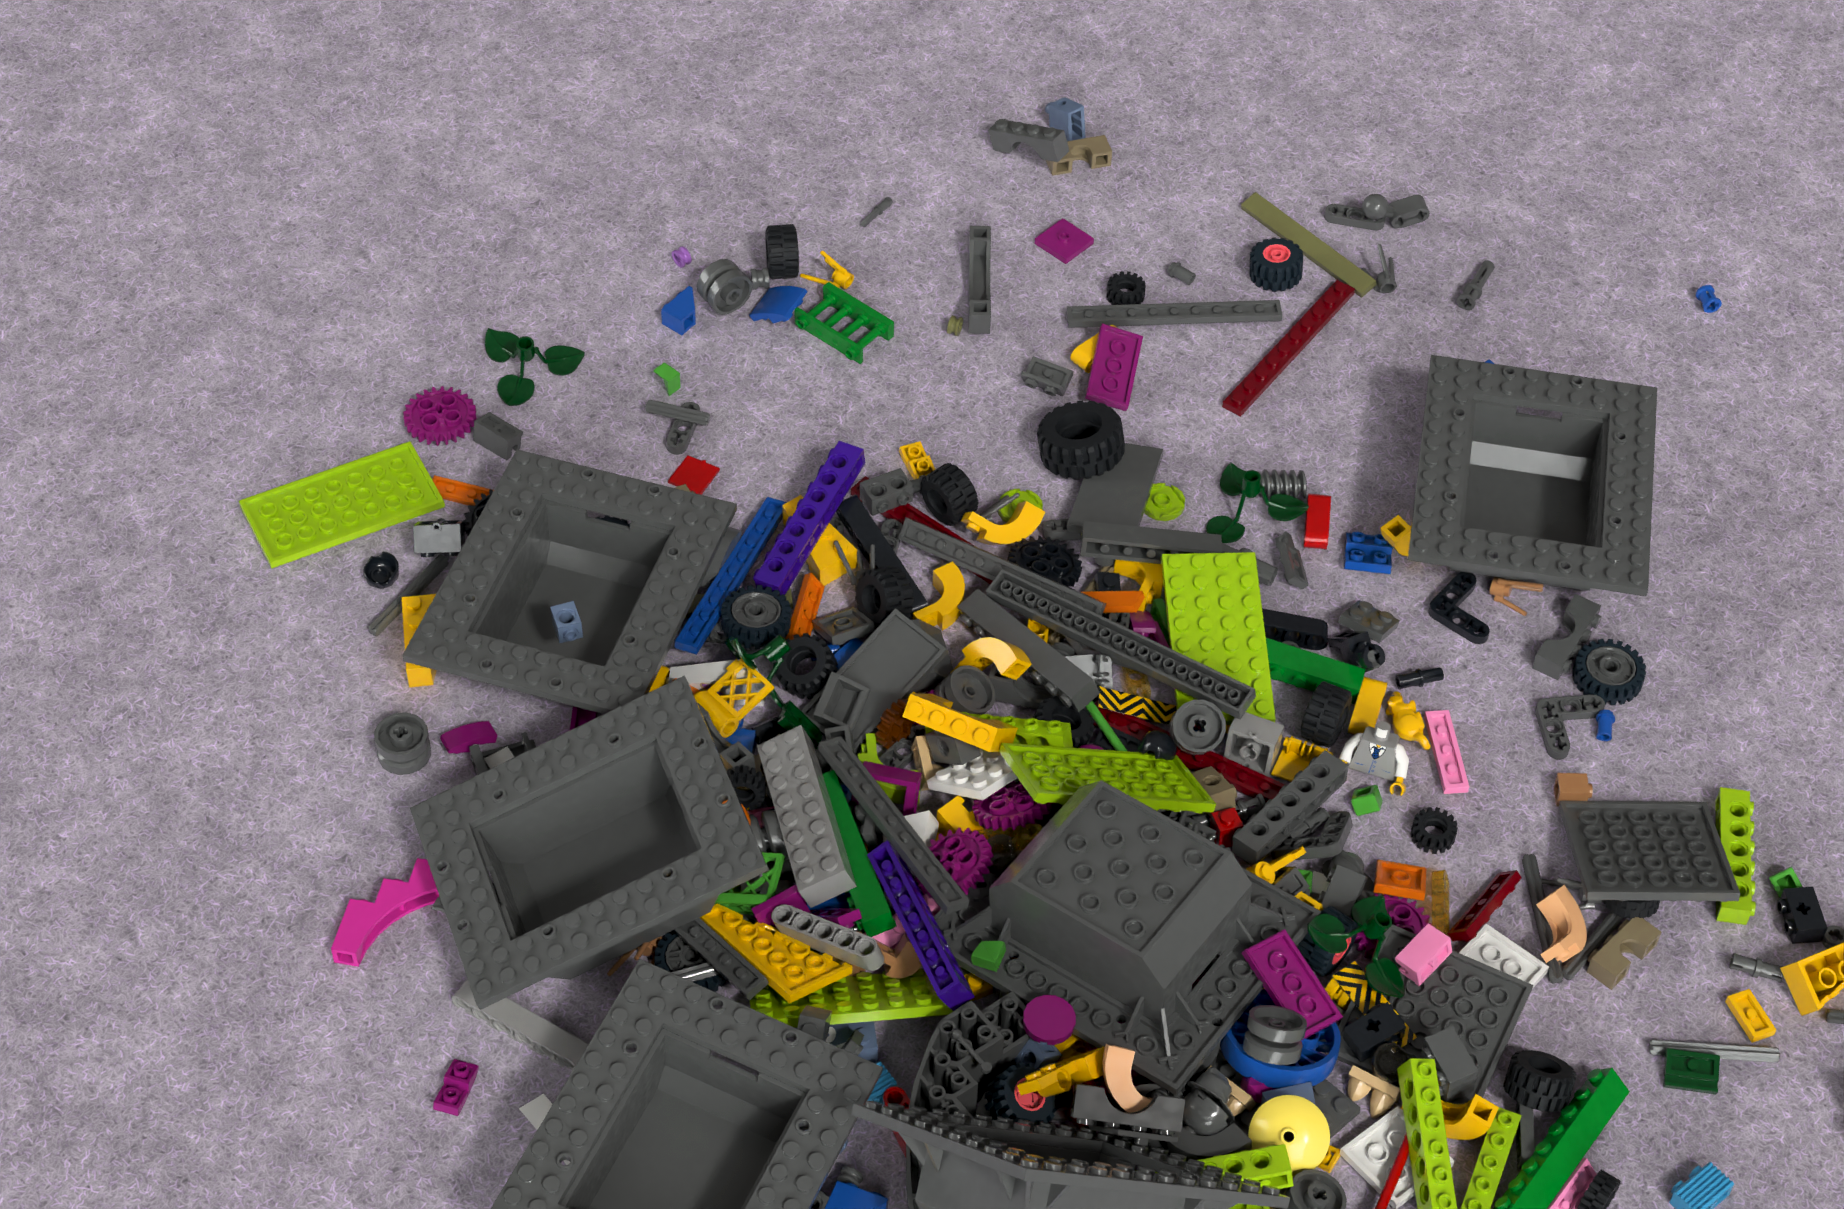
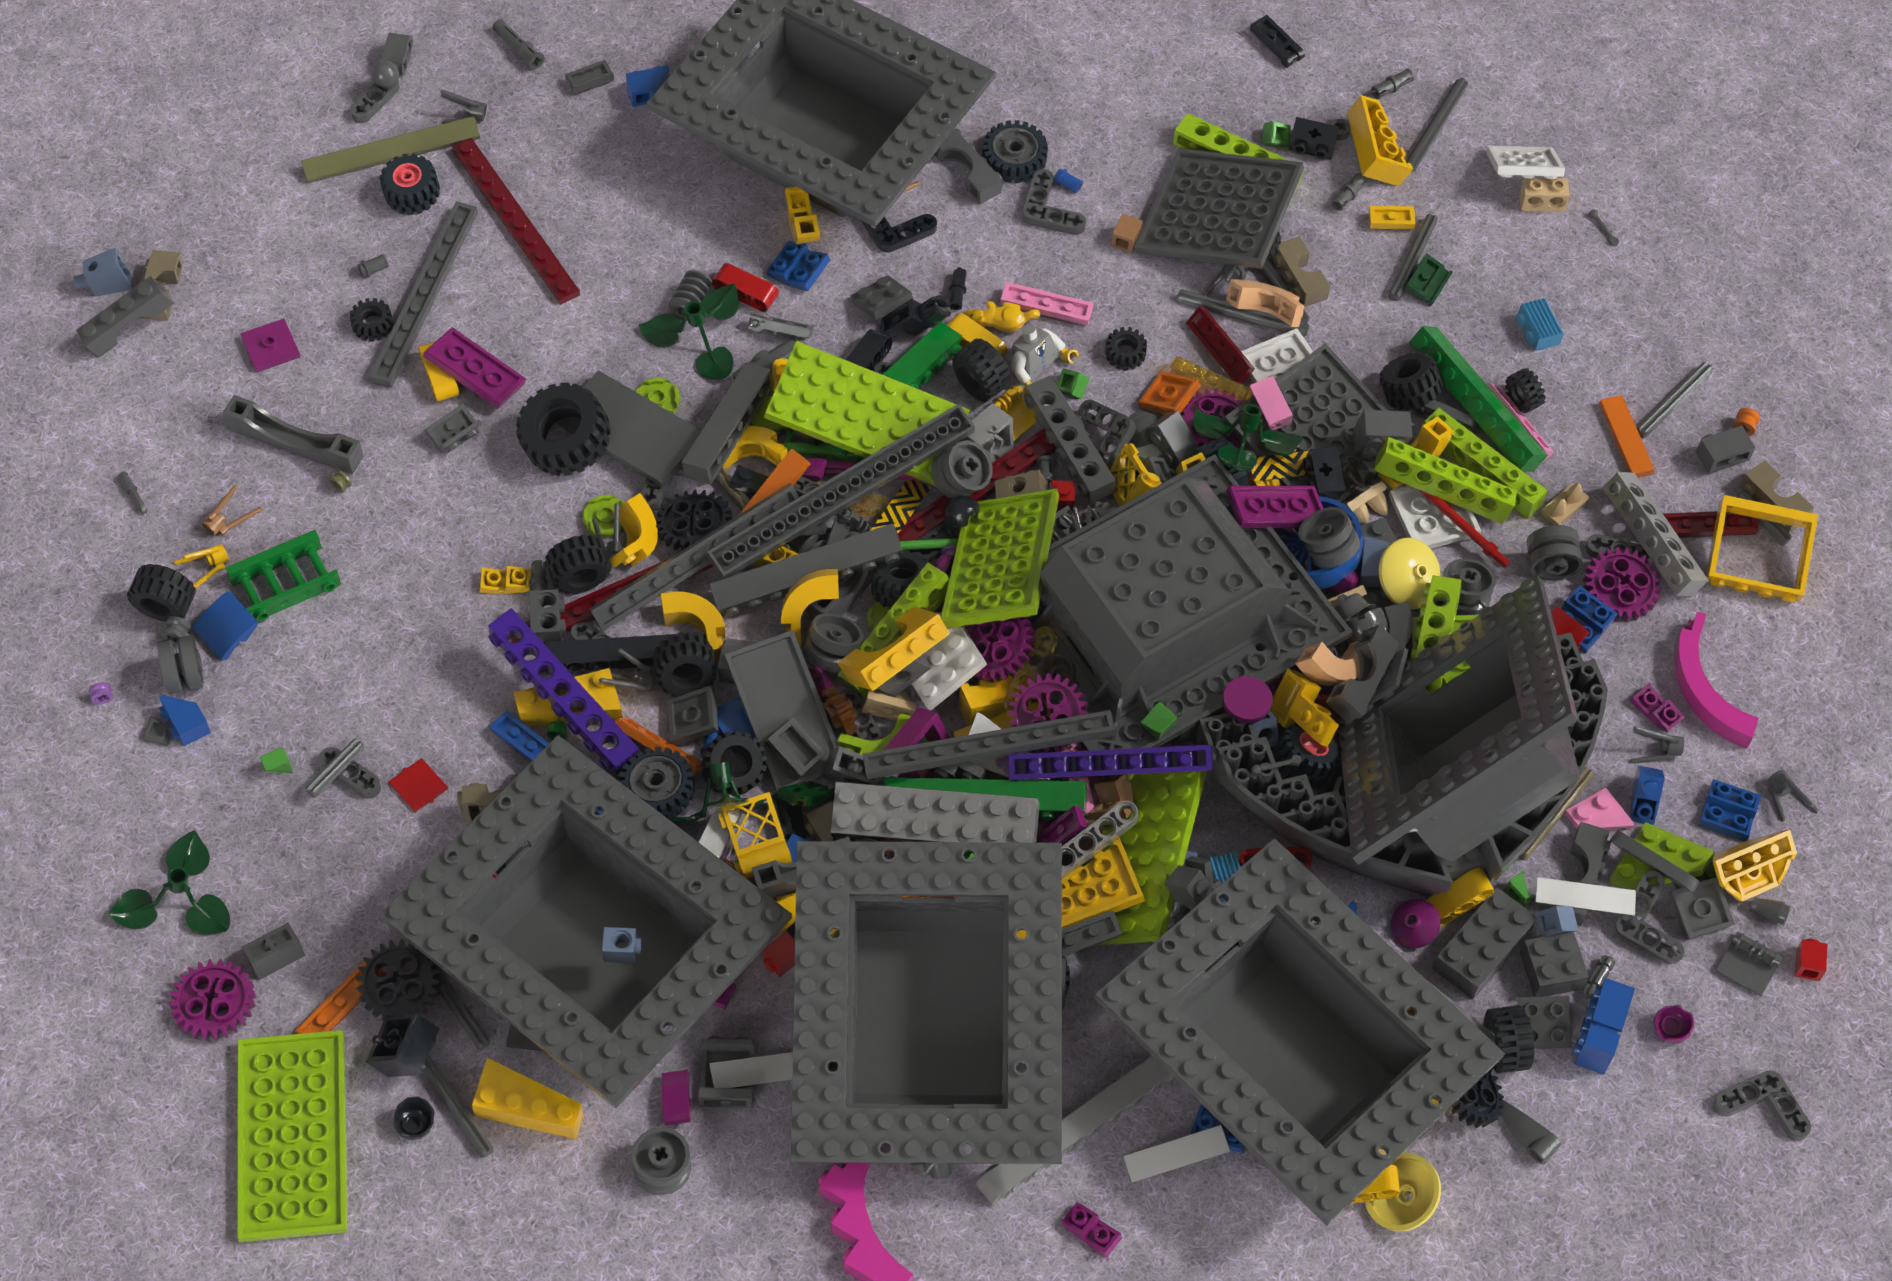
camera: 70 degrees left, 10 degrees up
(663, 299) = (156, 732): none -> dark grey tile
(874, 265) = (215, 520): none -> medium nougat plant
(1475, 342) = (589, 77): none -> dark grey plate

